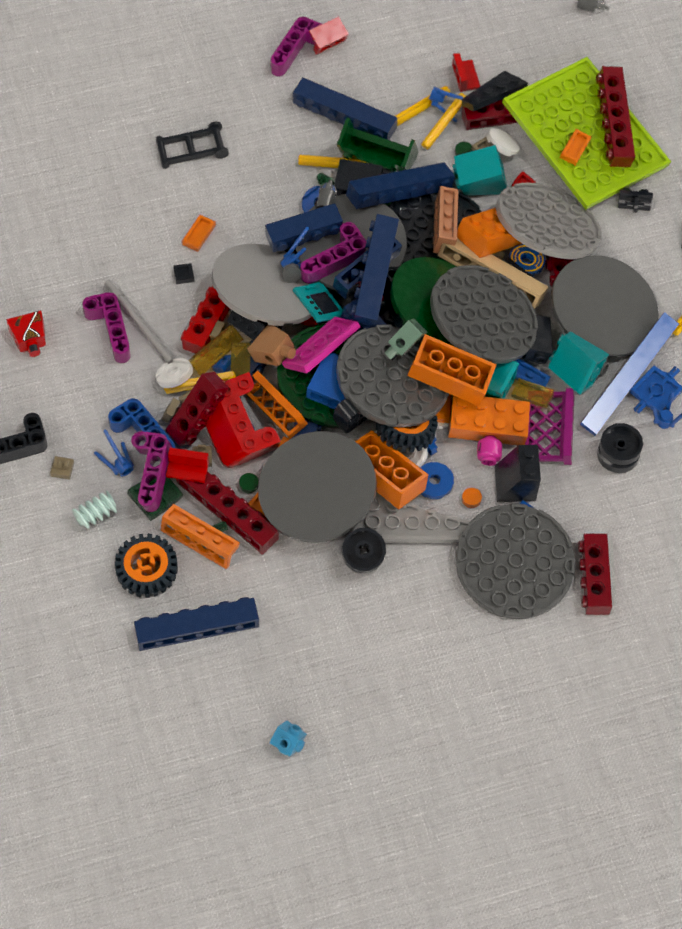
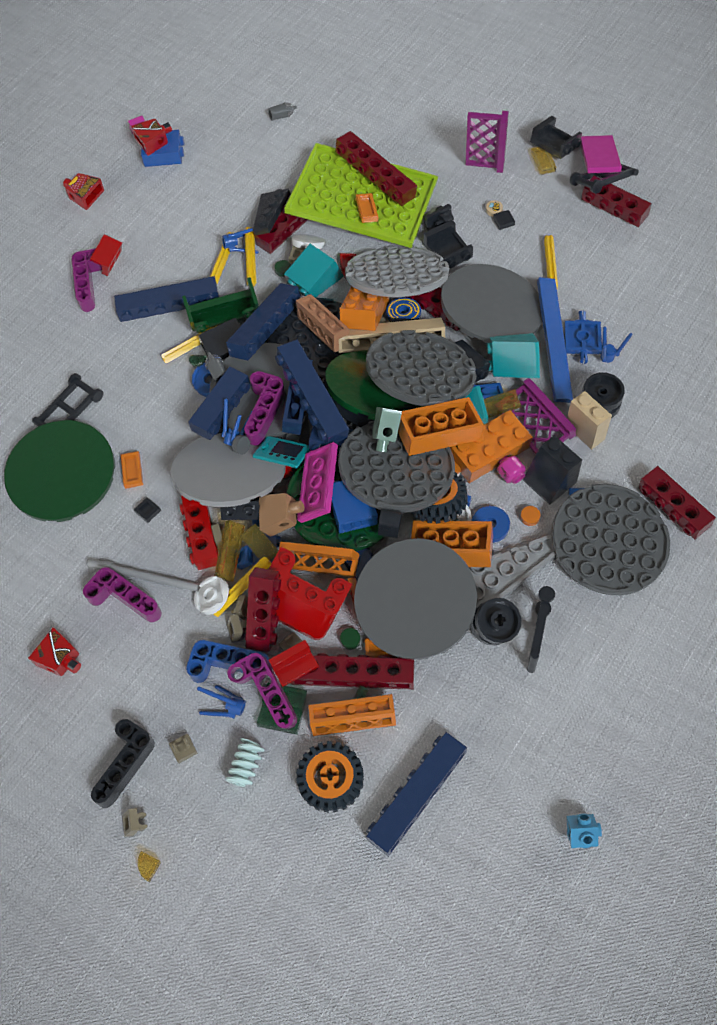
camera: 30 degrees left, 0 degrees up
(144, 193) = (59, 471): none -> dark green tile
(386, 584) = (542, 609): none -> black piece
(465, 73) = (233, 215): red panel -> none
(585, 457) = (589, 419): none -> tan brick
(620, 229) = (448, 244): none -> black panel

